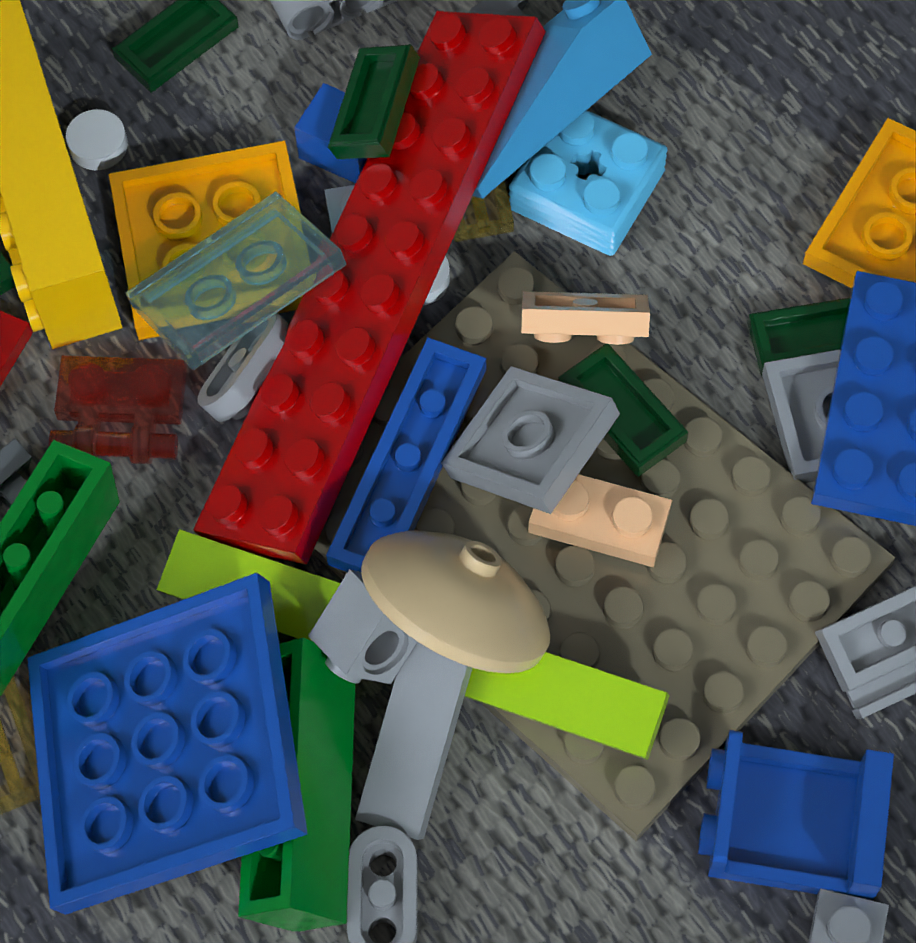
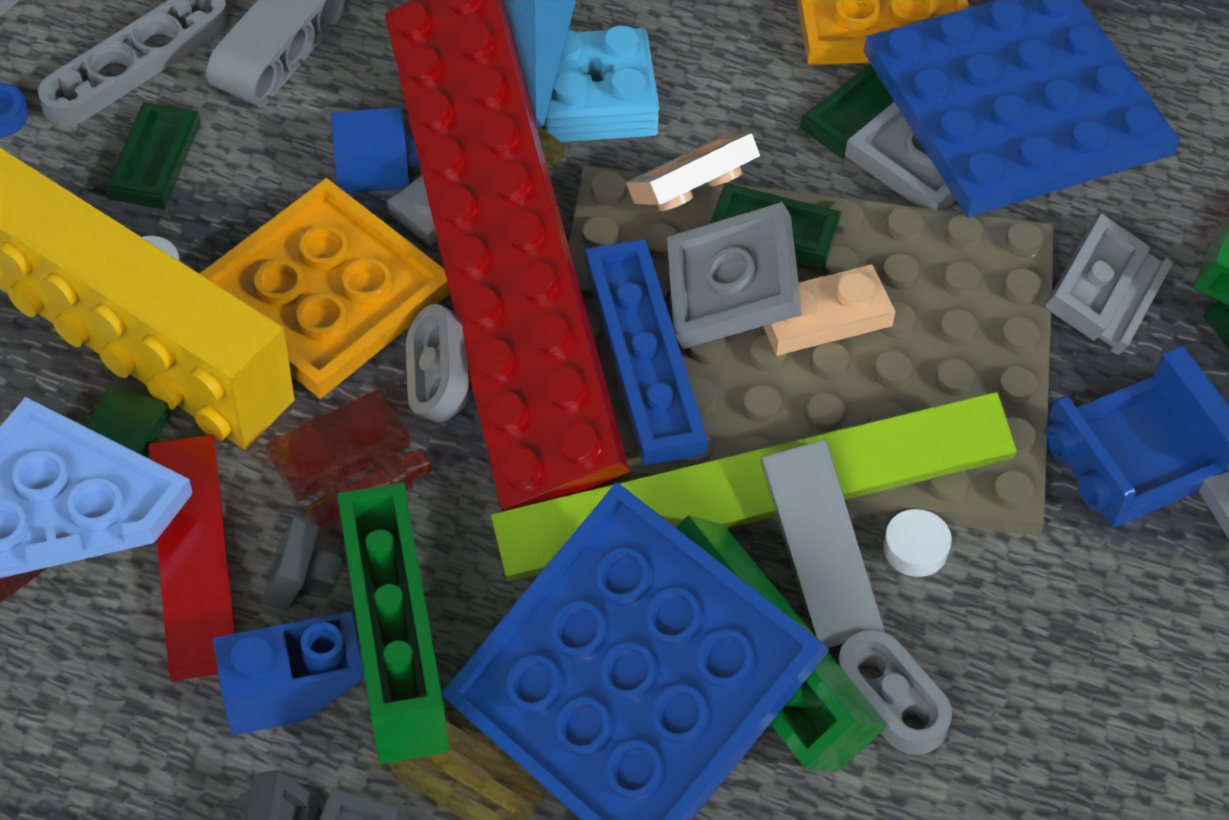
camera: 40 degrees left, 10 degrees down
(235, 279) = (386, 292): clear light blue tile -> none
(359, 635) = (735, 477): light grey brick -> none
(374, 102) = (394, 100): dark green tile -> none
(457, 600) = (790, 403): tan dish -> none
(518, 778) = (917, 542): none -> white tile

